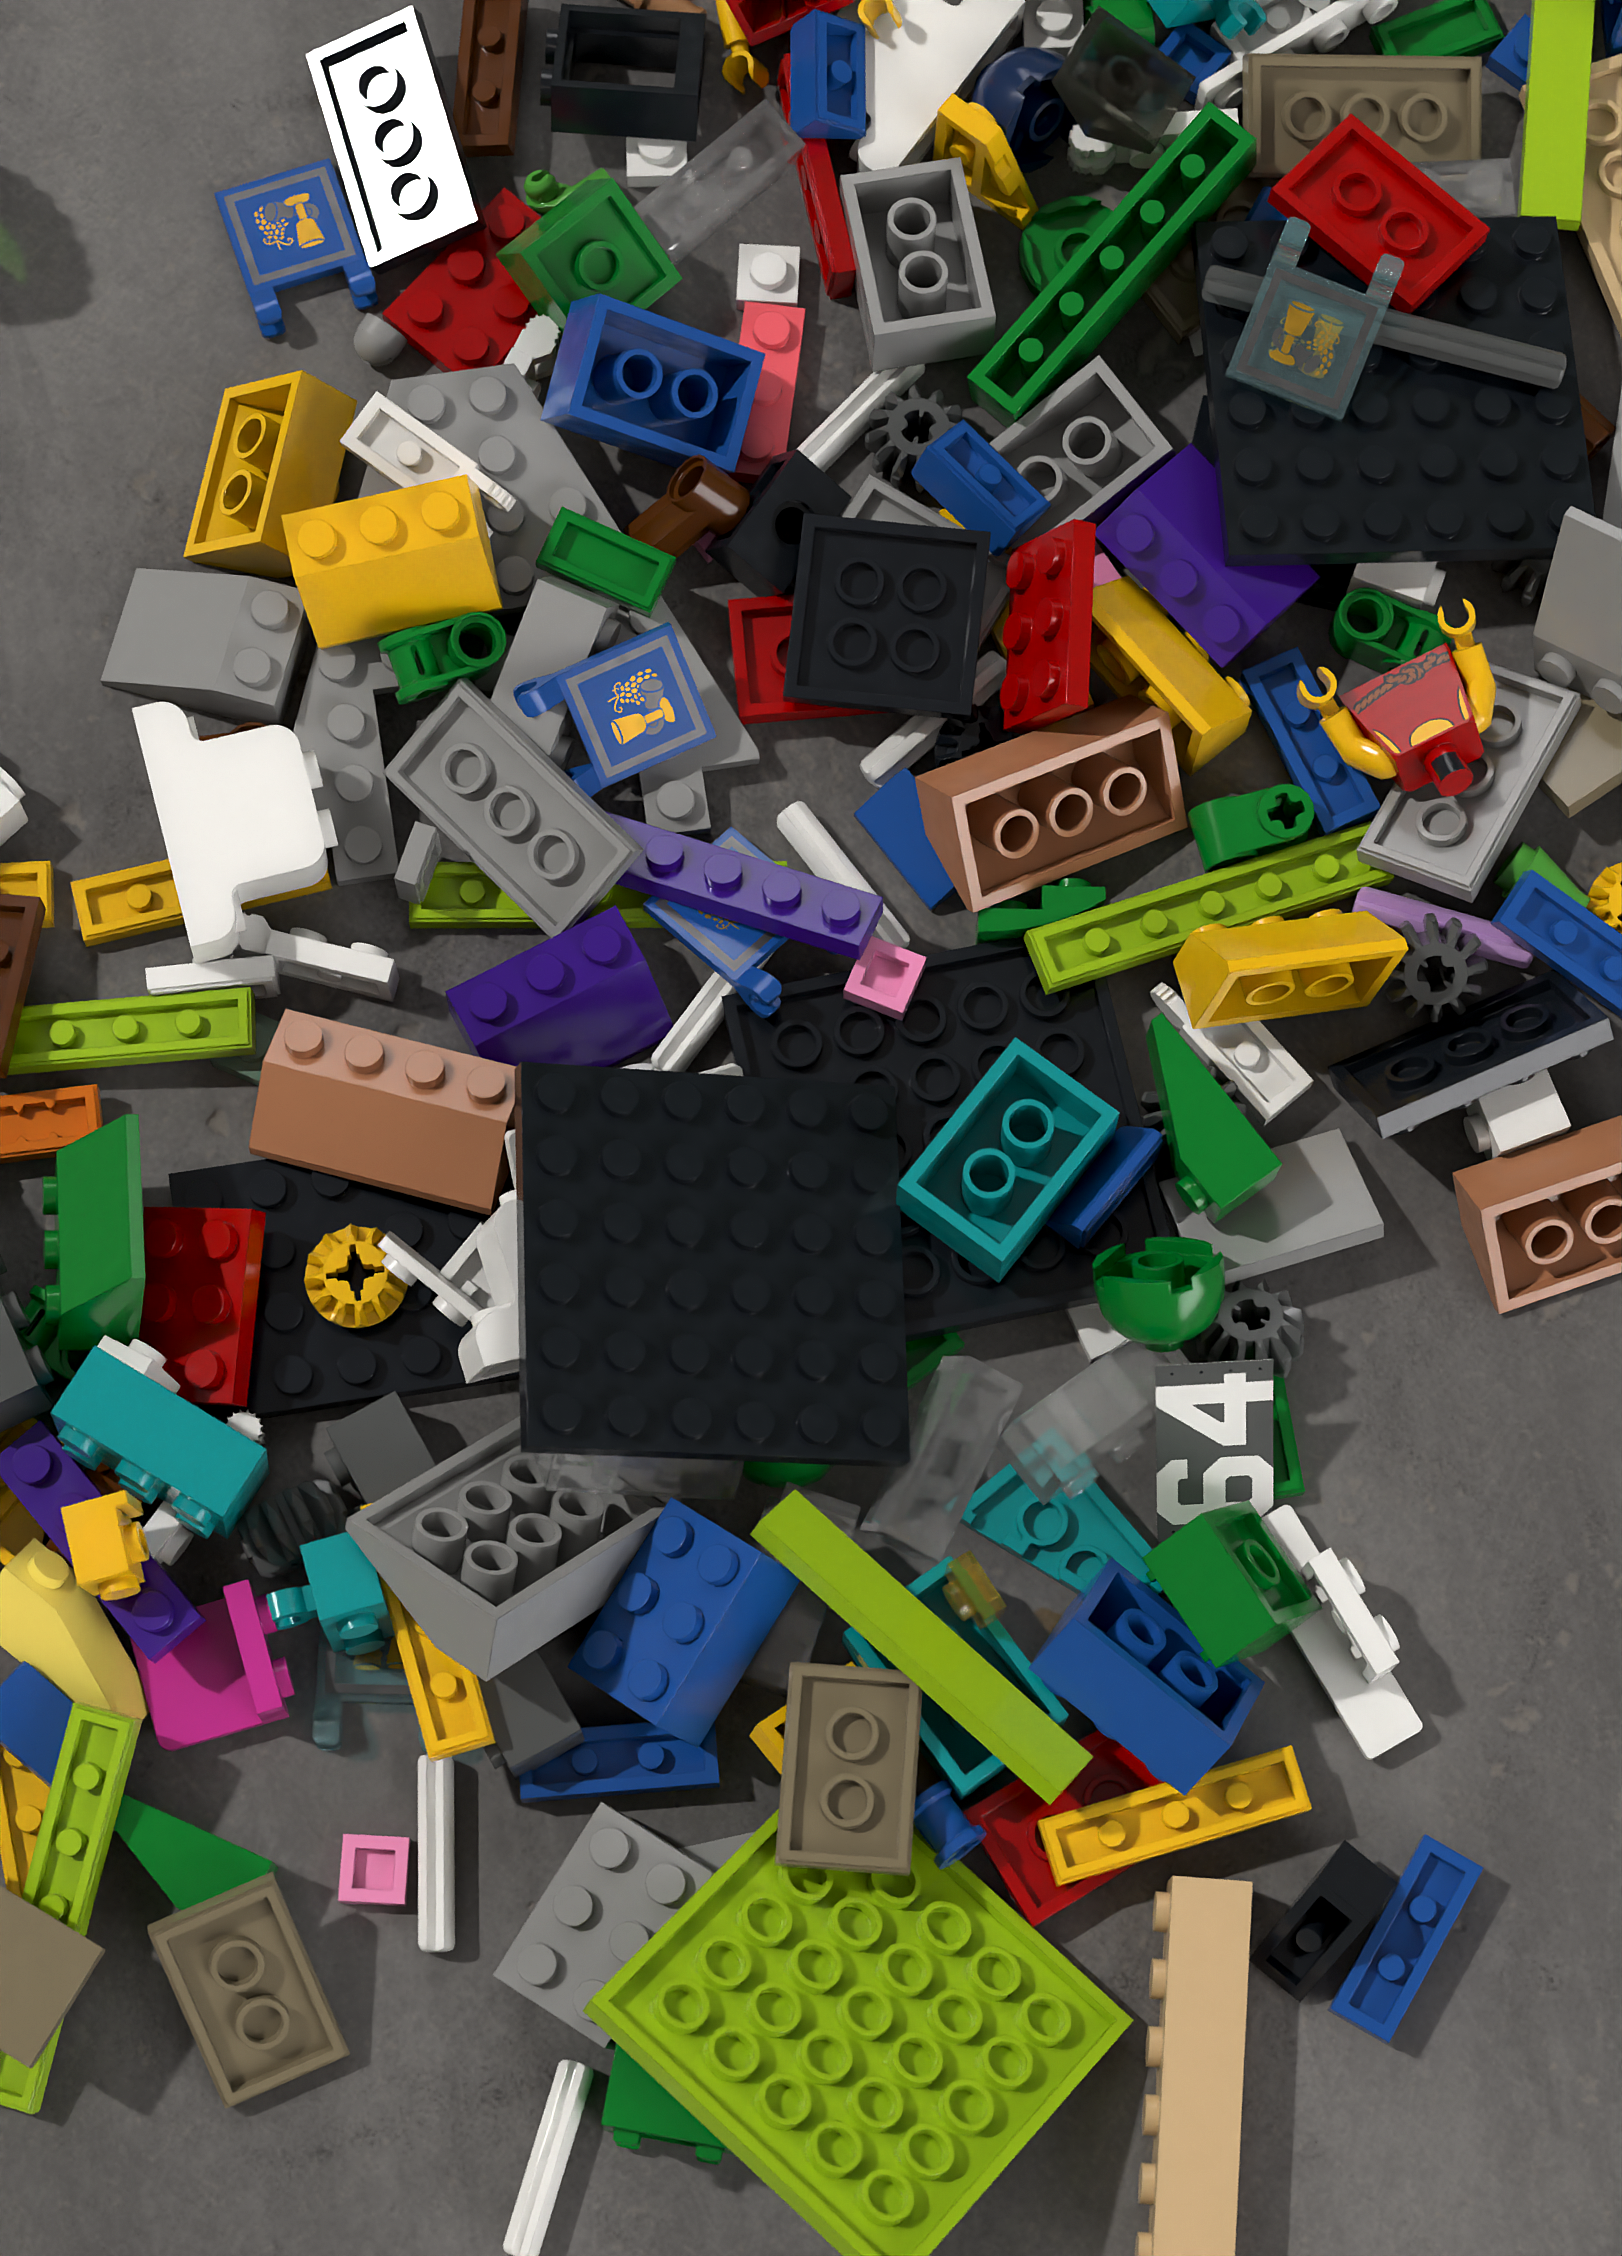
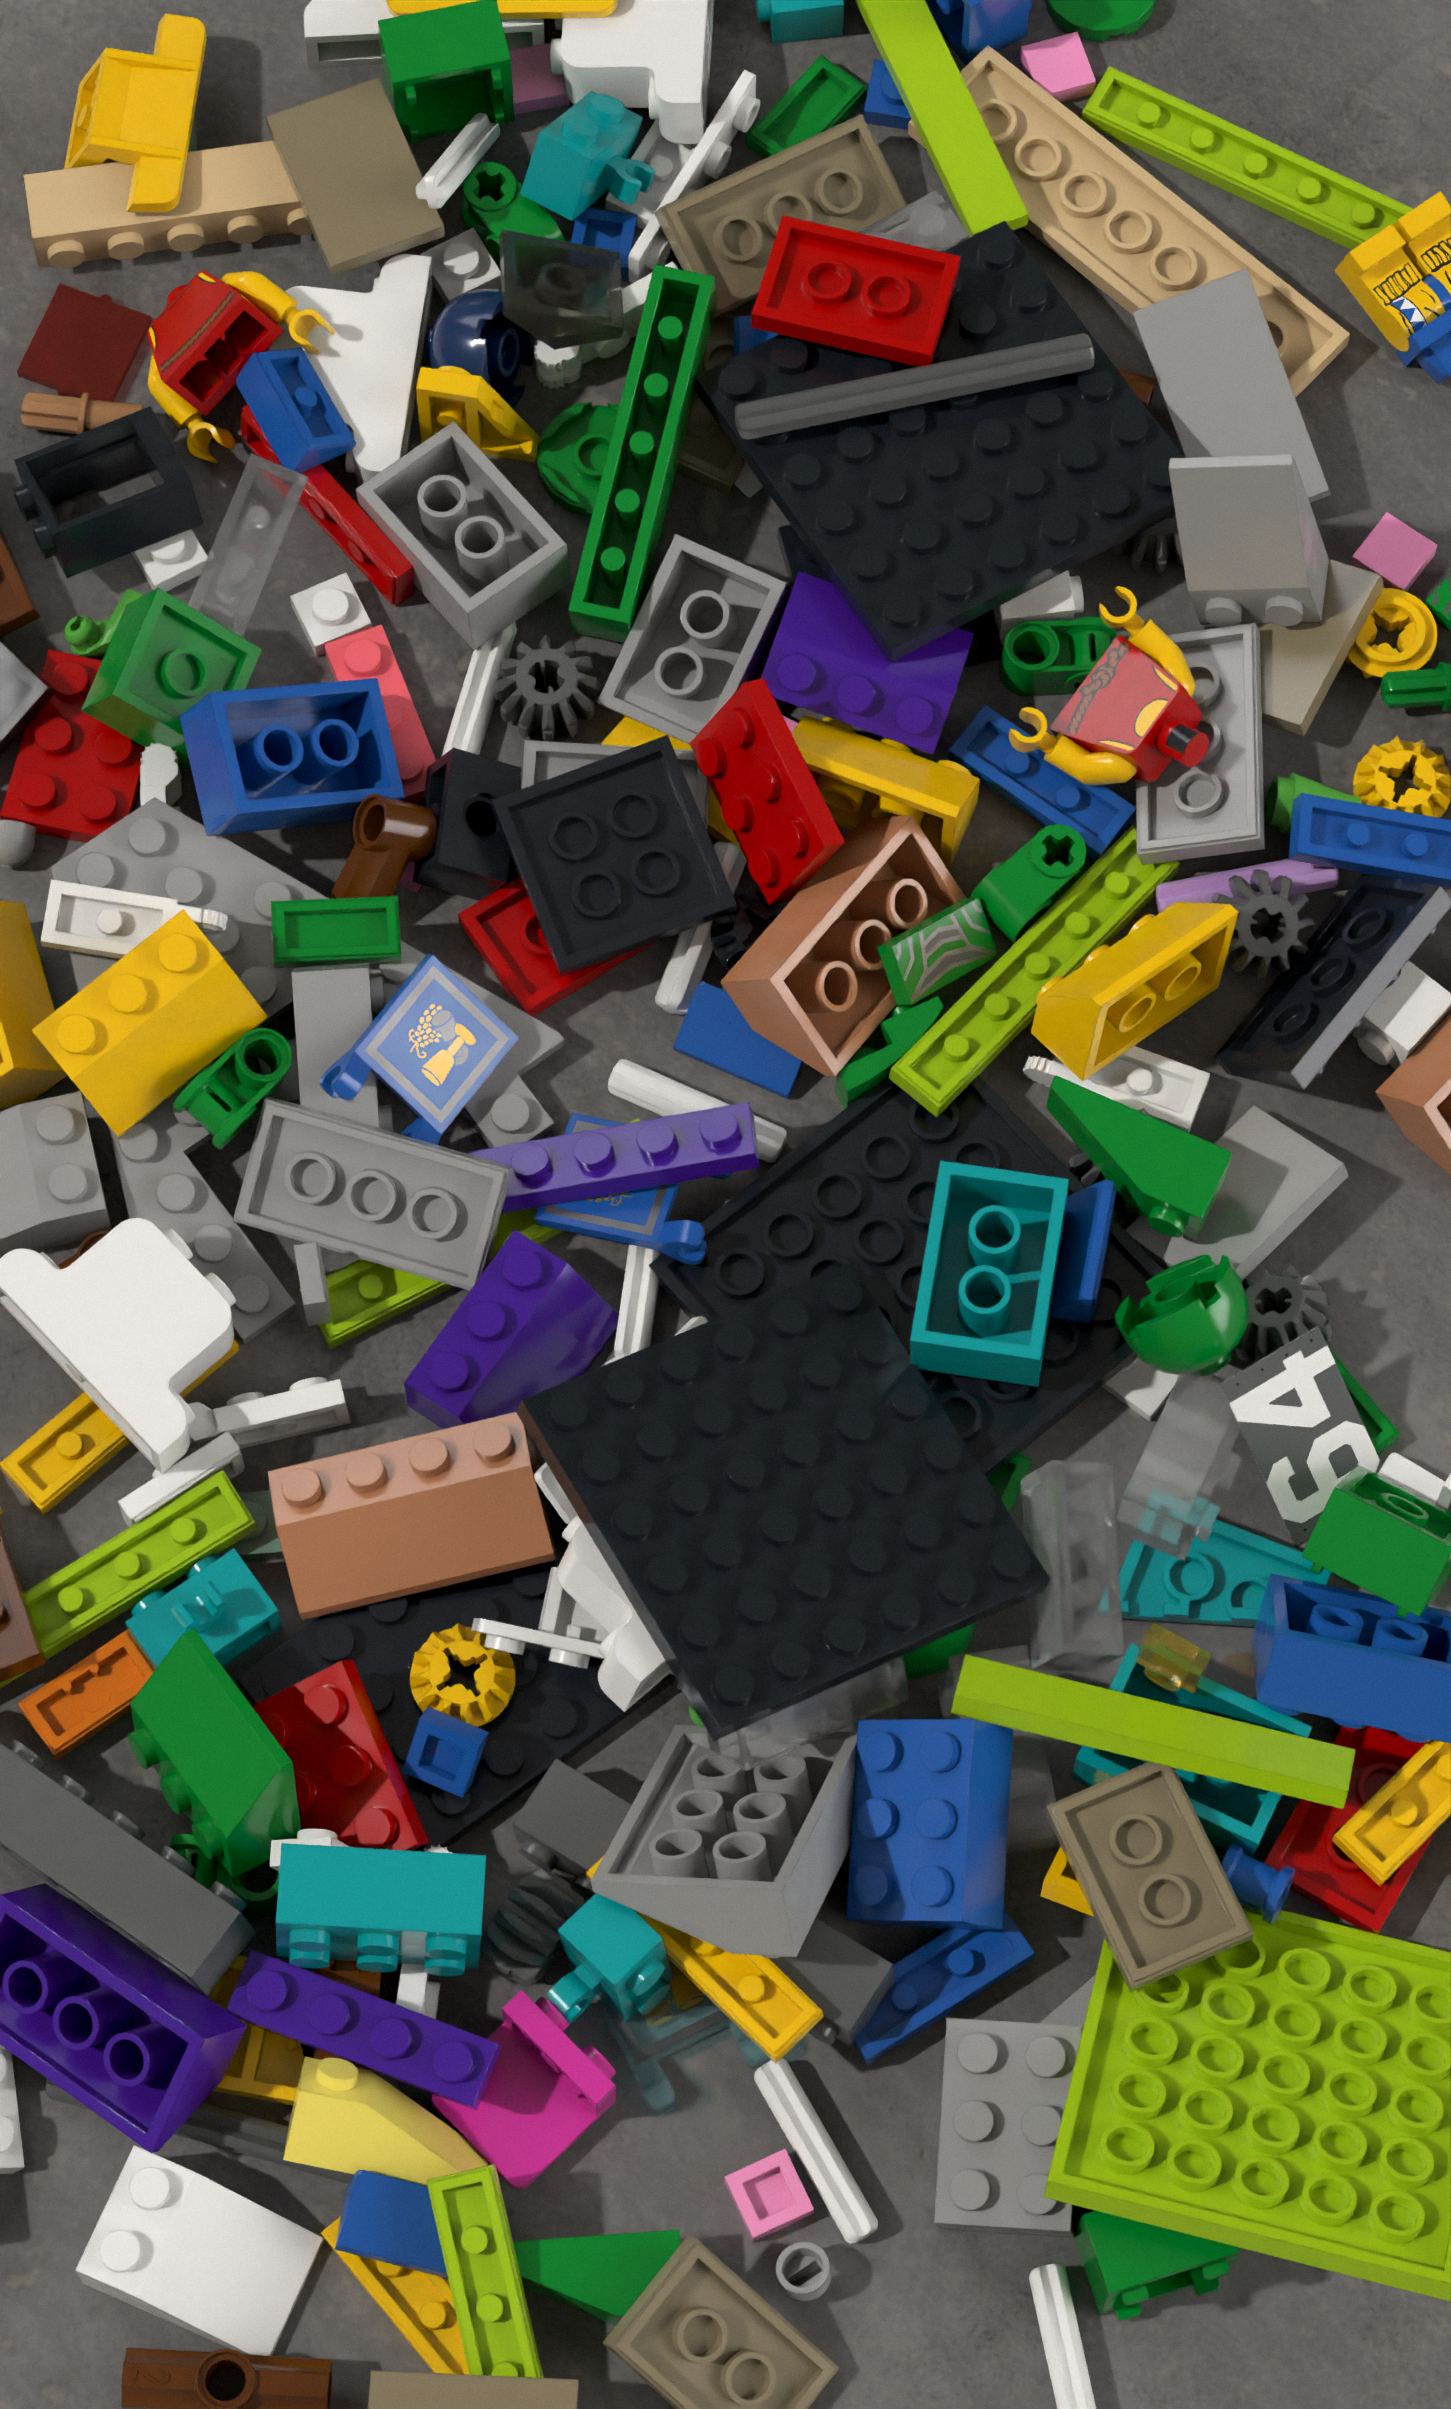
camera: 25 degrees left, 5 degrees down
(107, 1544) = (384, 2020): yellow brick -> none
(179, 1107) = (217, 1601): none -> teal brick
(302, 1335) = (445, 1752): none -> blue plate
(364, 1942) = (798, 2262): none -> light grey hinge
(885, 978) = (787, 1174): bright pink tile -> none
(979, 486) = (630, 701): blue slope -> none
(1129, 846) = (937, 951): none -> green tile
(1308, 332) = (855, 423): clear light blue flag -> none

